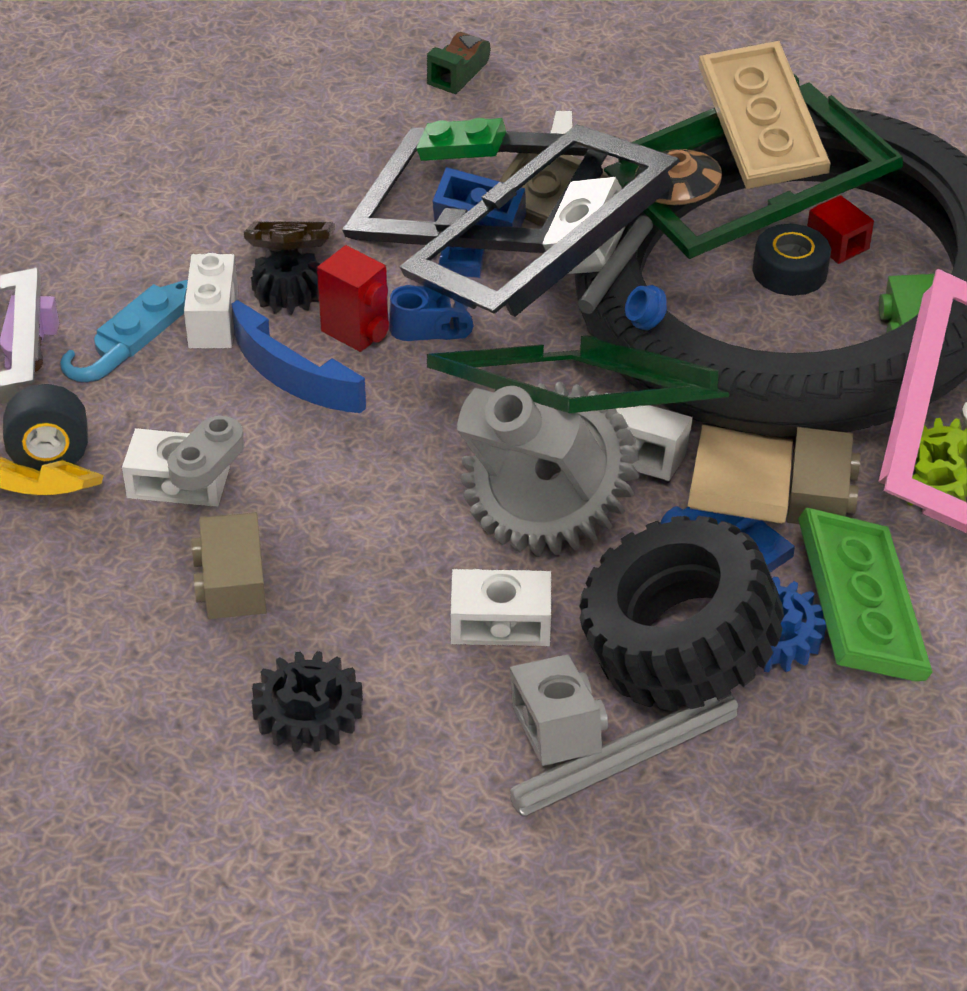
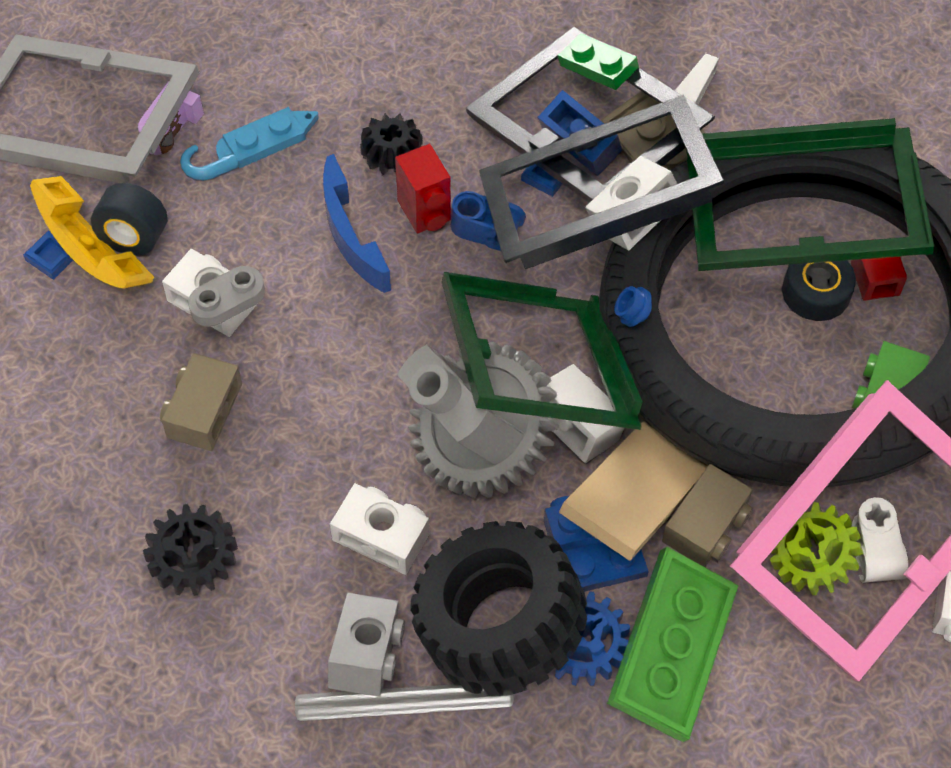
camera: 25 degrees right, 15 degrees up
(209, 299) = (323, 133): white brick -> none
(288, 234) = (412, 102): dark brown tile -> none
(615, 265) = (637, 249): dark grey bar -> none
(693, 177) = (746, 187): dish -> none
(763, 115) = (842, 150): tan tile -> none

